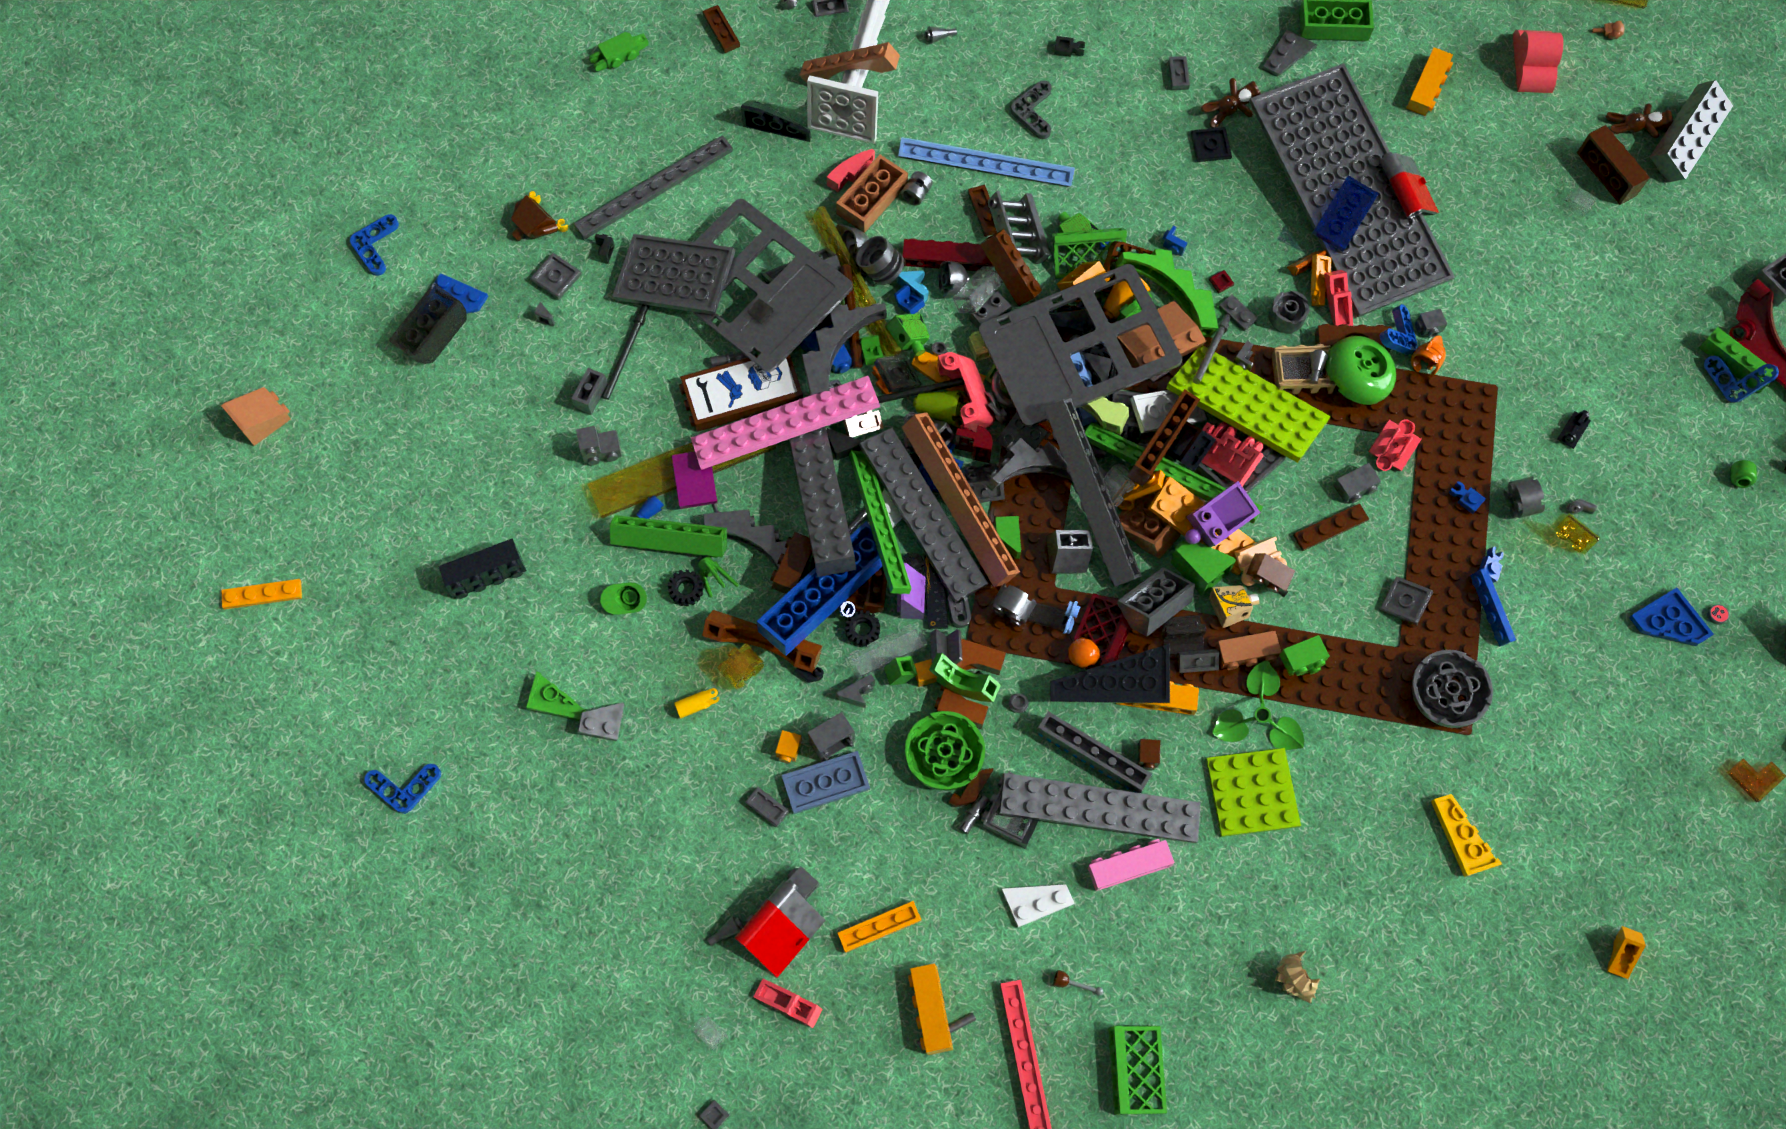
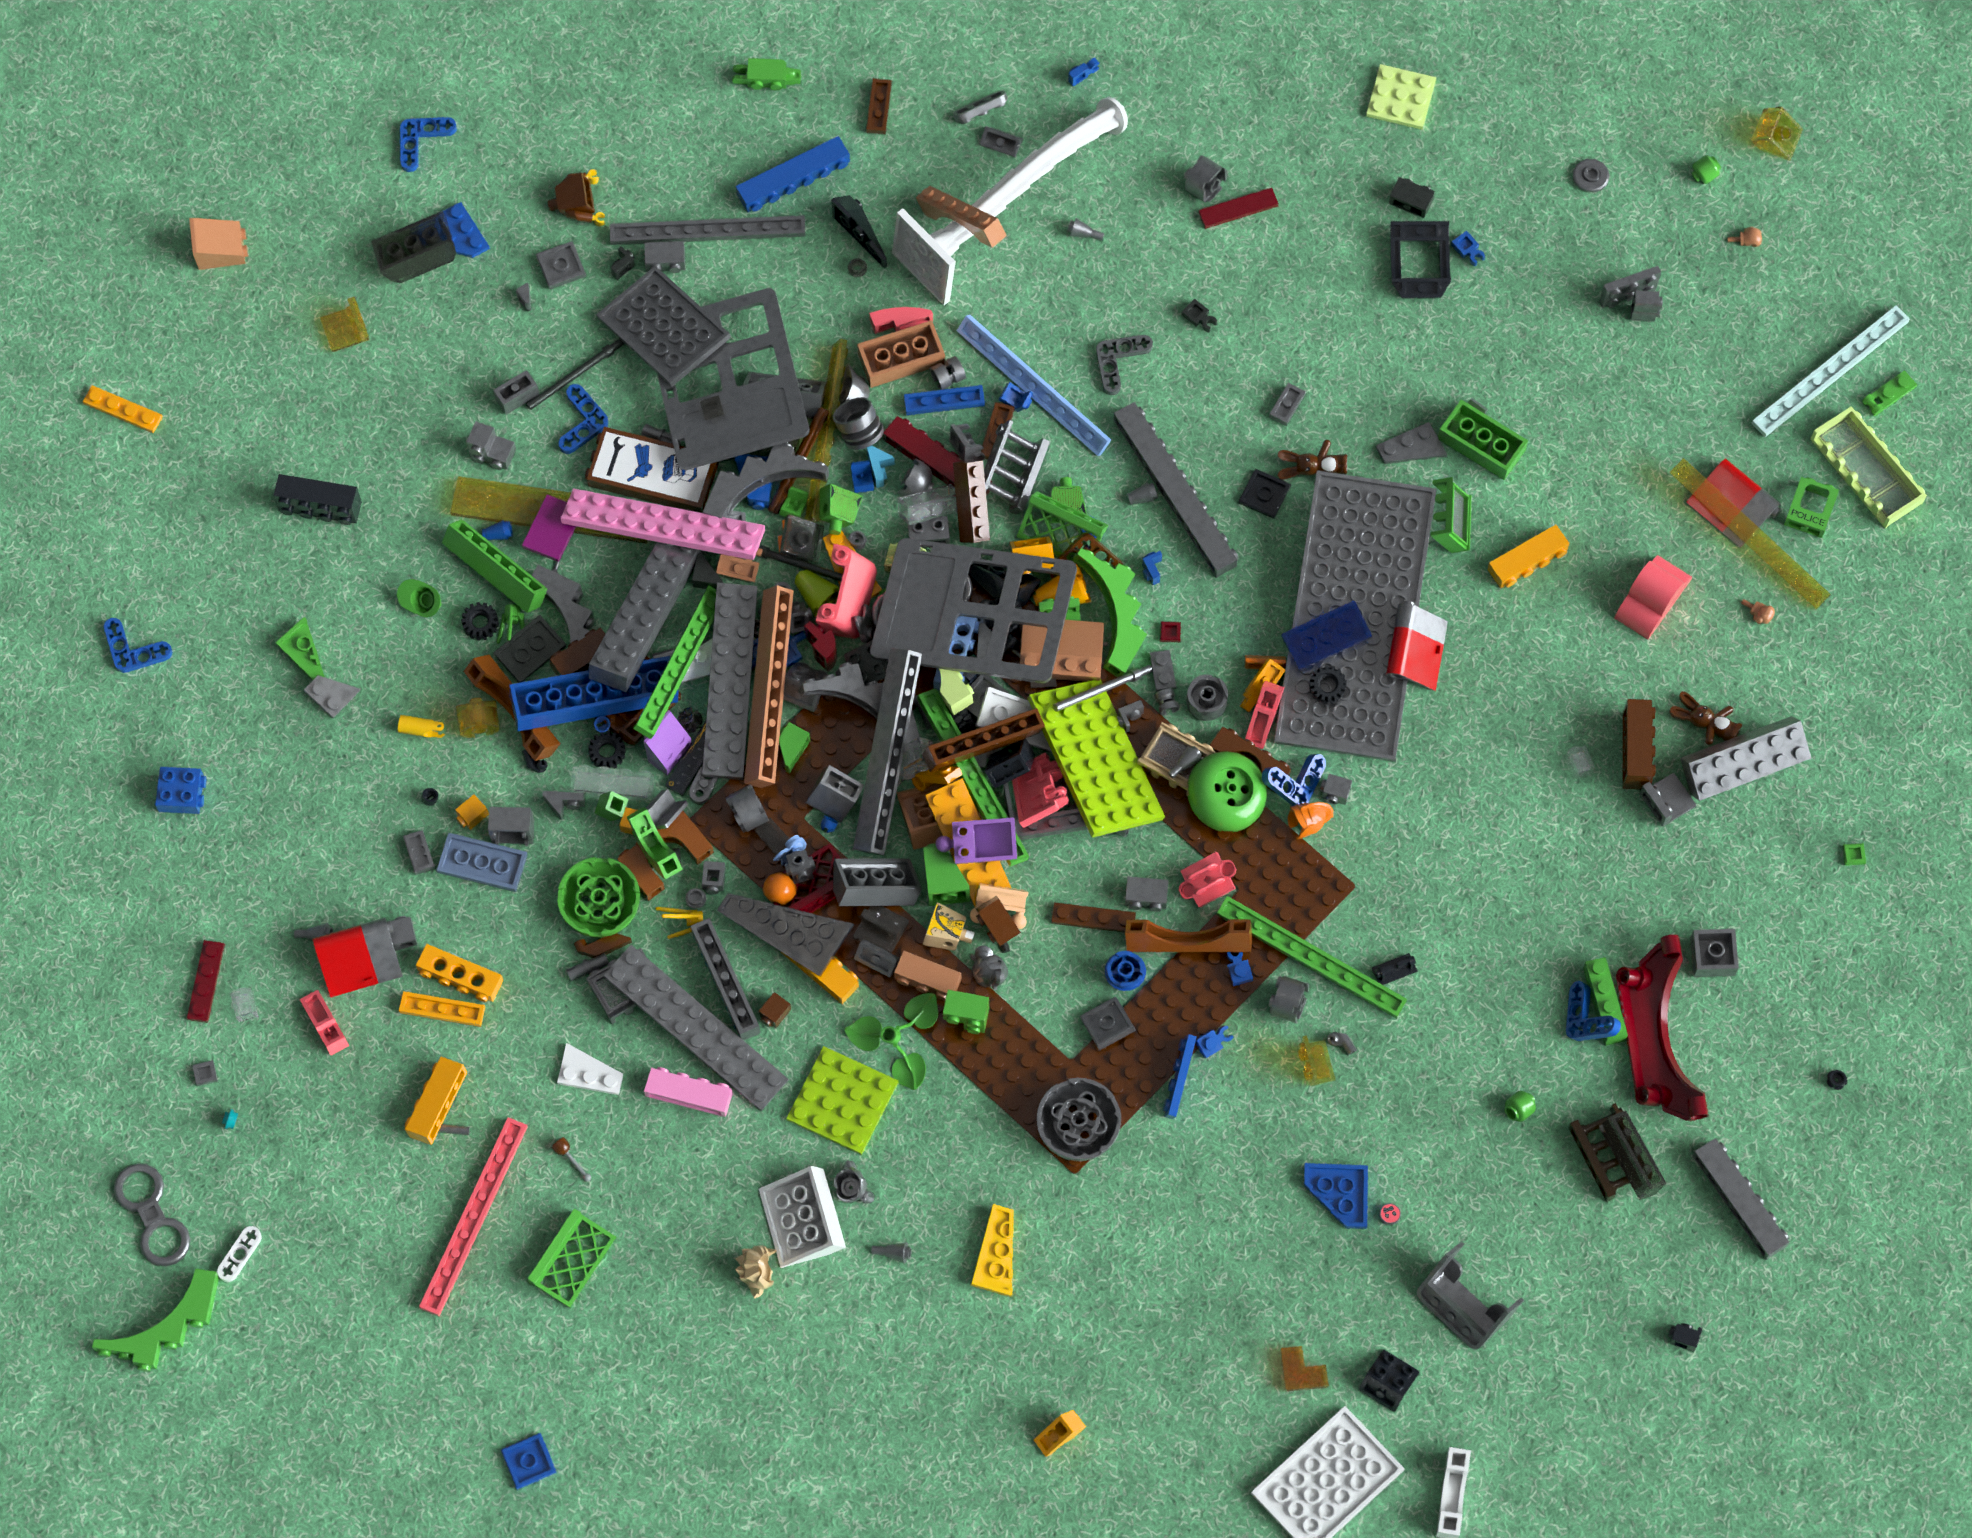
camera: 35 degrees right, 0 degrees up
(411, 420) = (345, 327): none -> clear yellow bracket
(527, 882) = (180, 790): none -> blue brick
(636, 221) = (665, 256): none -> flat silver brick
(660, 1034) = (205, 981): none -> dark red plate
(664, 383) = (588, 424): none -> blue beam
(691, 111) = (793, 174): none -> blue brick
(740, 752) = (427, 793): none -> black hinge
(743, 585) = (529, 649): none -> pearl dark grey plate
(789, 147) = (857, 262): none -> clear smoke plate
(903, 876) = (433, 956): none -> light orange brick
(927, 210) = (944, 400): none -> blue plate
(969, 232) = (964, 444): none -> flat silver hinge
(980, 177) = (1016, 397): none -> blue bracket
(1022, 670) = (710, 871): none -> flat silver brick
(1028, 720) = (691, 916): none -> yellow plant
(1079, 578) = (829, 823): none -> blue hinge
(1088, 624) = (800, 866): none -> flat silver brick
(1126, 193) = (1143, 494): none -> flat silver cone
(1147, 176) = (1175, 489): none -> flat silver brick
(1260, 333) = (1166, 700): none -> flat silver wheel
(1287, 615) = (988, 968): none -> flat silver hair
(1295, 910) = (802, 1217): none -> white slope
(1322, 856) = (852, 1177): none -> flat silver hair
(1364, 81) = (1457, 516): none -> bright green window
(1377, 241) = (1327, 672): none -> black tyre
(1389, 887) = (898, 1252): none -> flat silver cone
(1391, 551) = (1125, 971): none -> blue cone
(1449, 476) = (1229, 937): none -> dark orange arch
(1513, 456) = (1315, 958): none -> bright green plate
(1659, 194) = (1667, 799): none -> flat silver bracket

